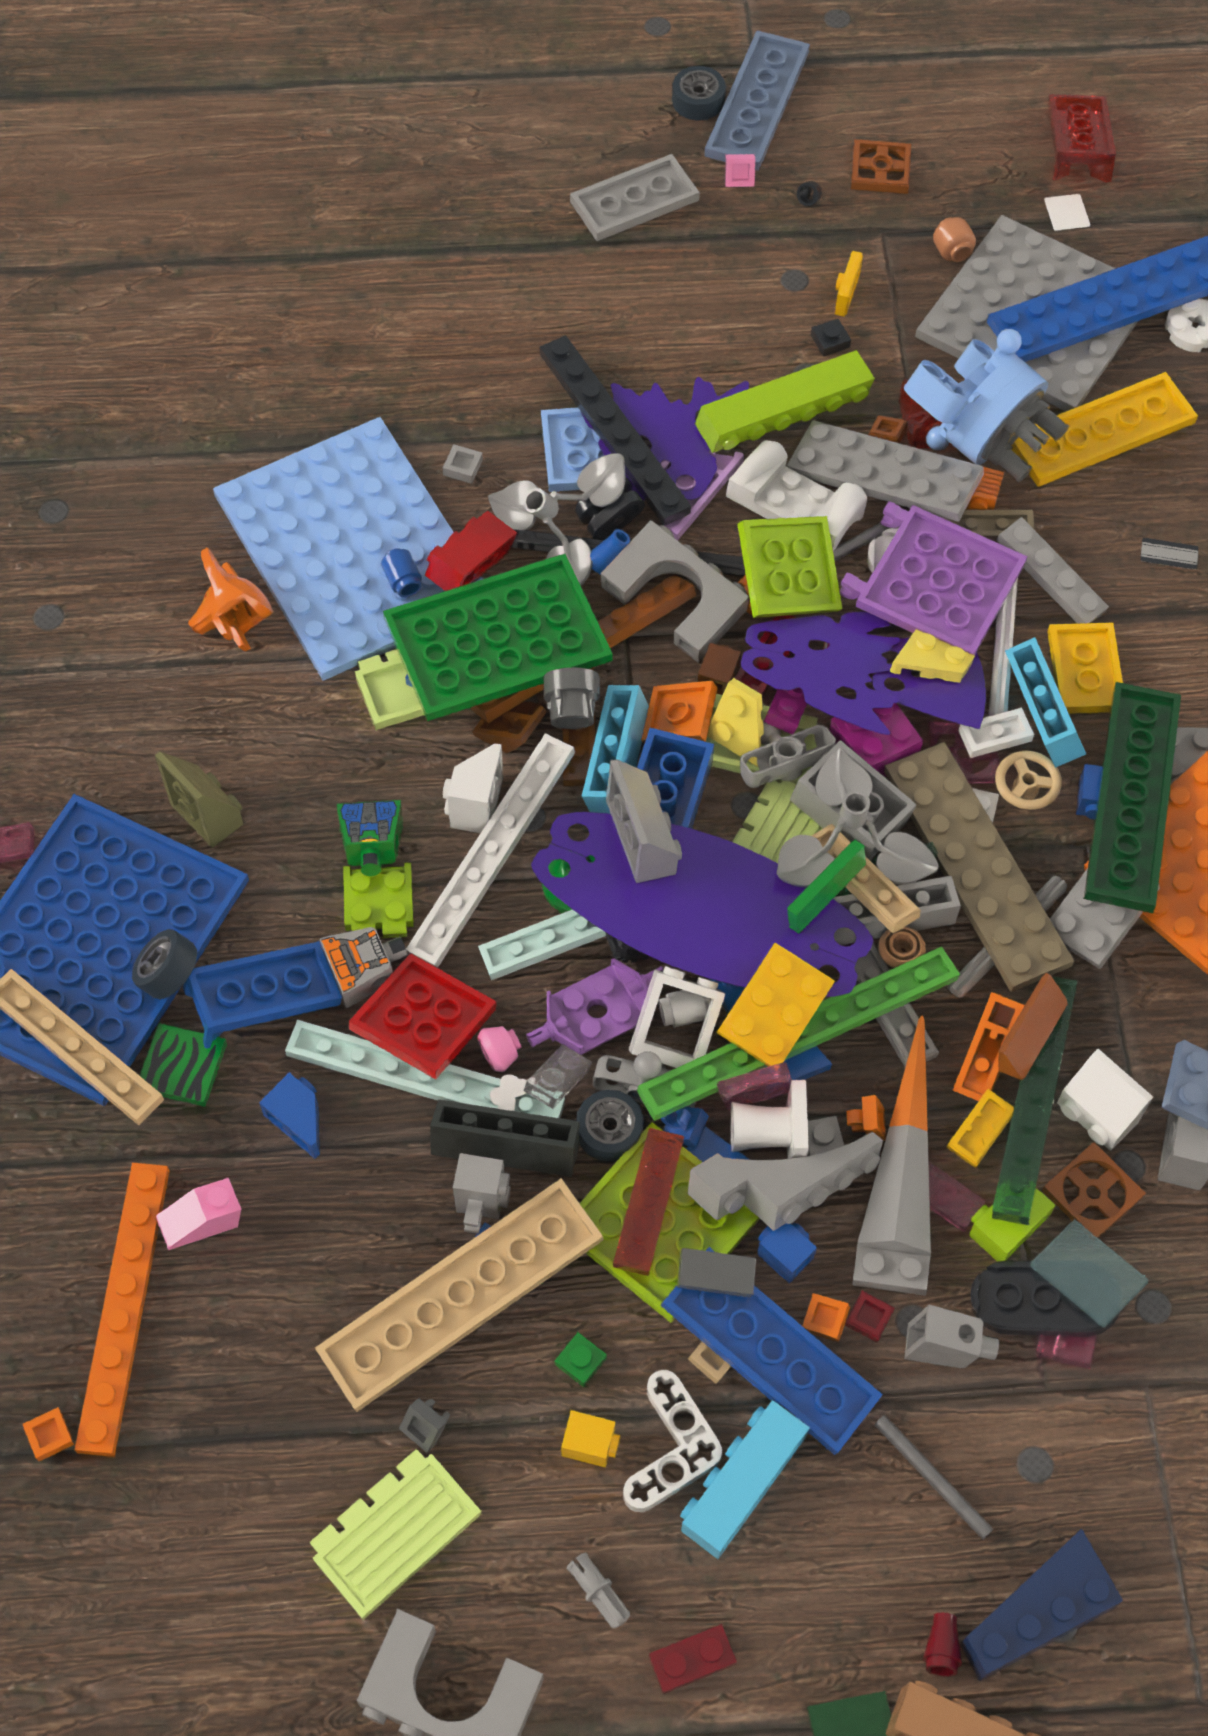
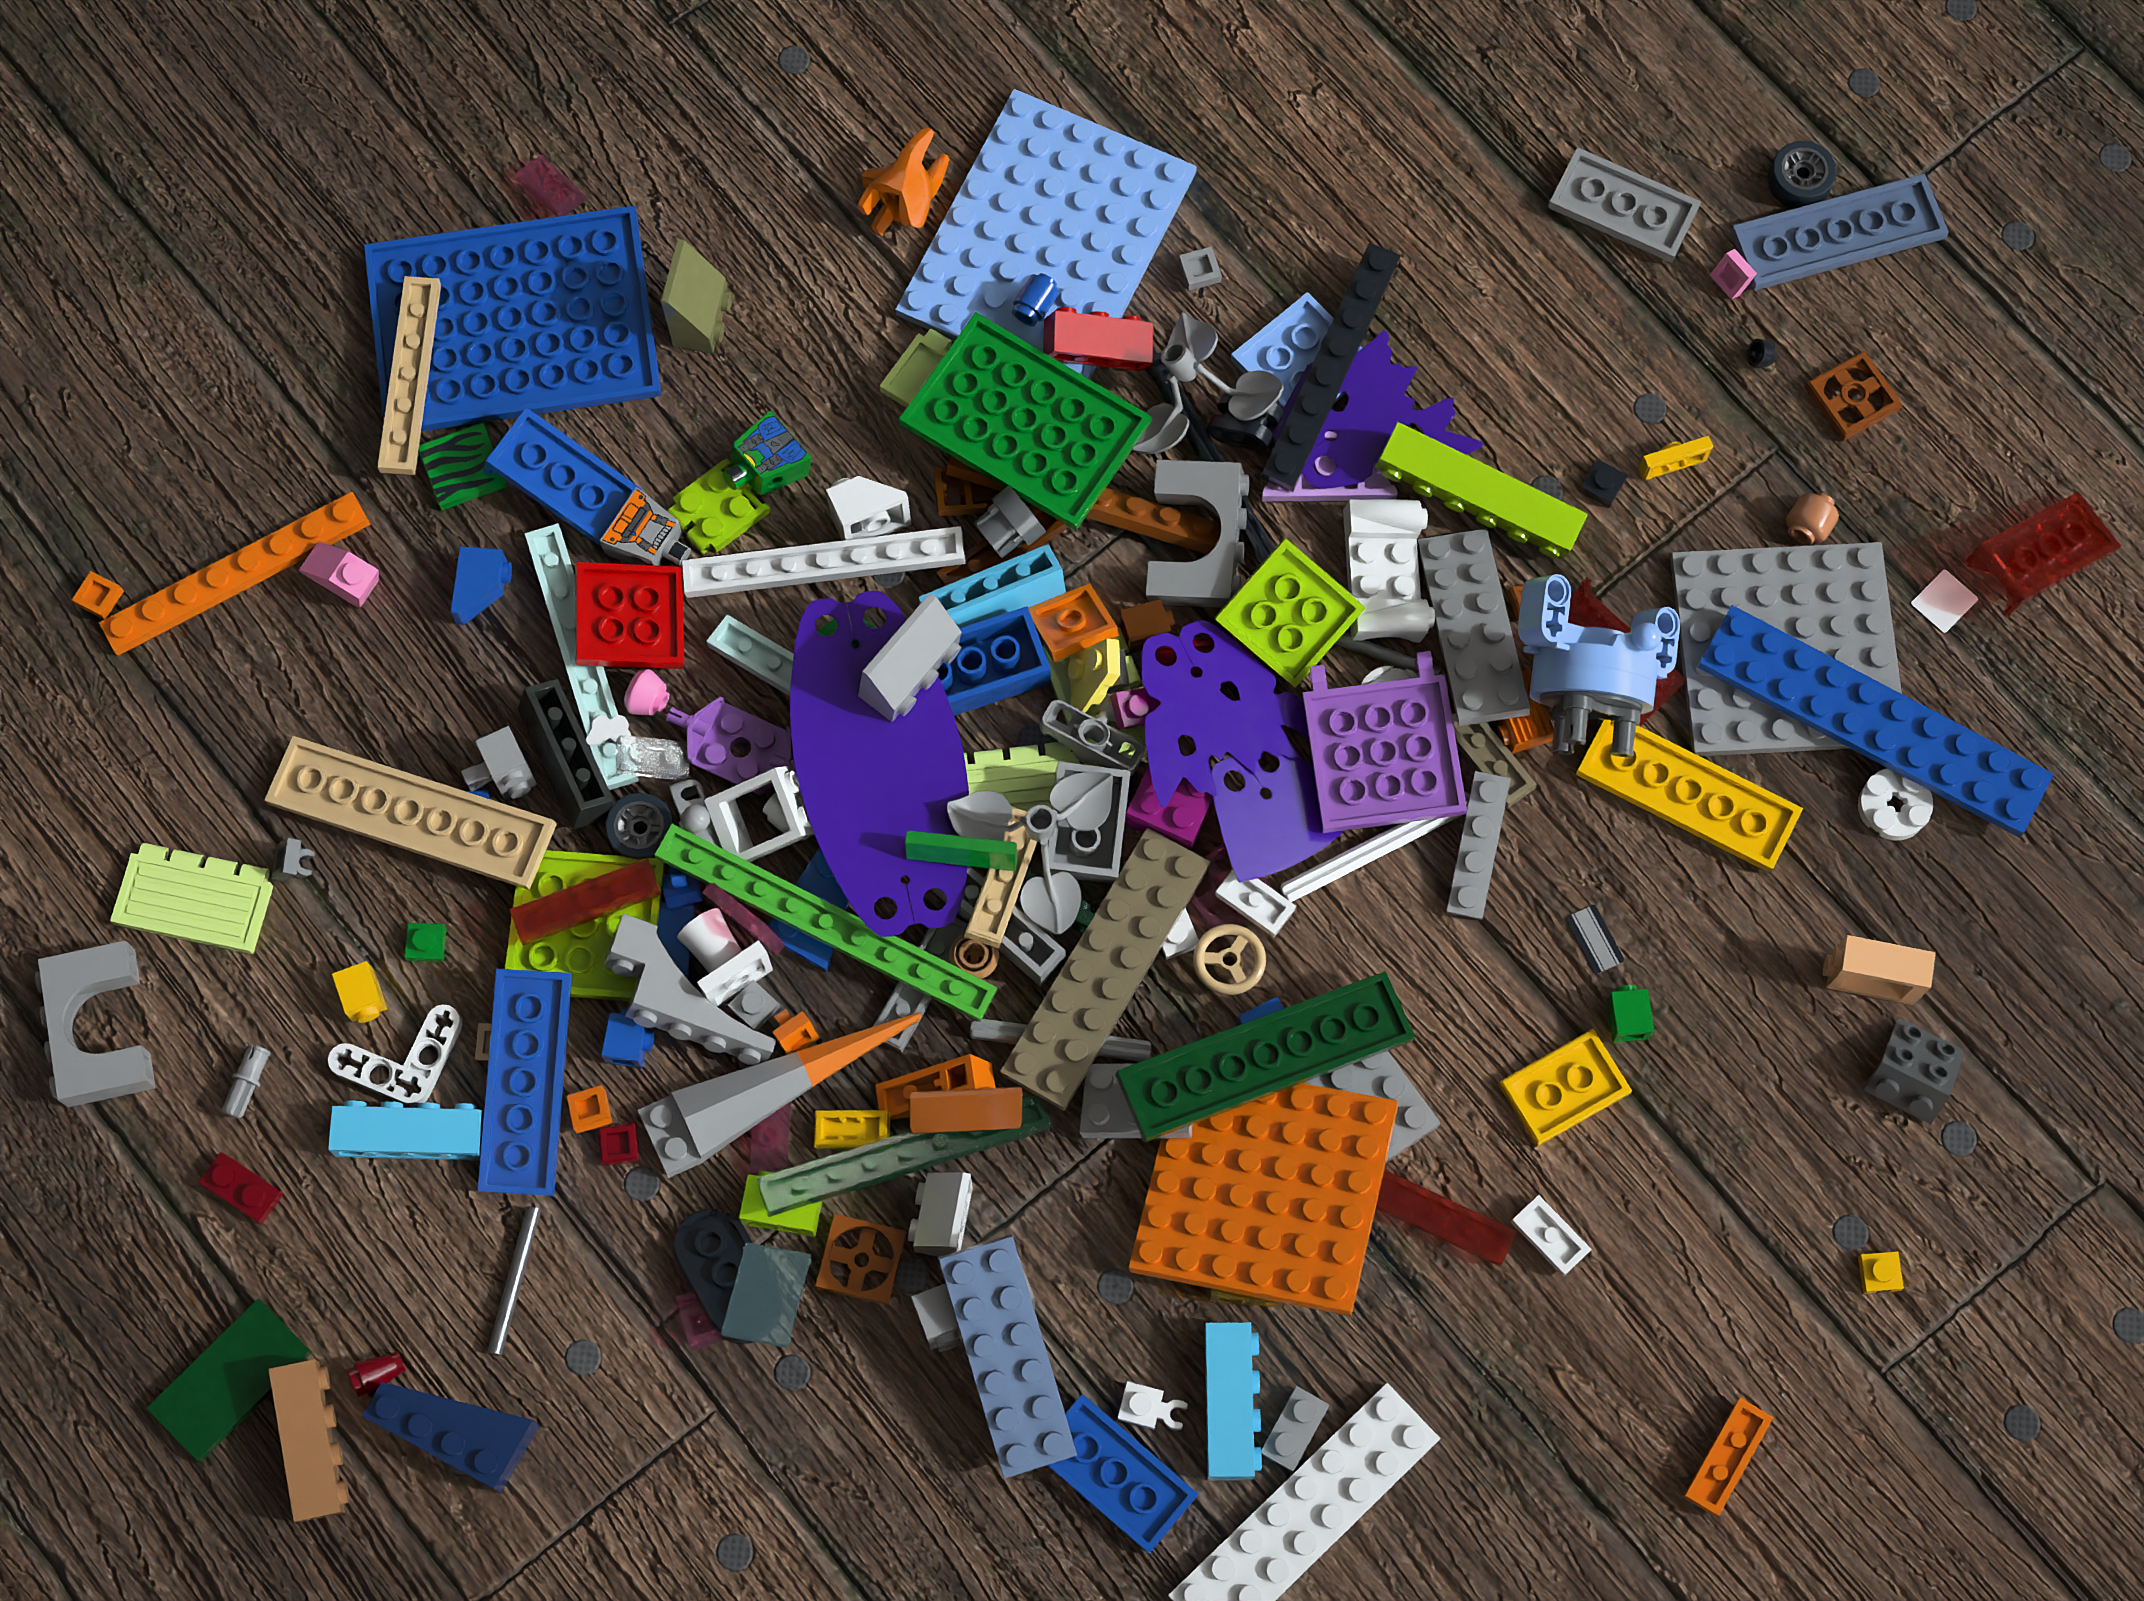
camera: 55 degrees right, 10 degrees up
(164, 964) = (520, 387): black wheel -> none
(608, 550) = (1190, 450): blue cone -> none
(716, 1272) = (549, 993): dark grey tile -> none
(775, 1006) = (818, 884): yellow plate -> none
(932, 658) = (1290, 795): light yellow wing -> none
(948, 1338) = (623, 1205): light grey torso -> none
(1045, 702) = (1315, 922): medium azure brick -> none
(1085, 665) = (1398, 935): yellow plate -> none

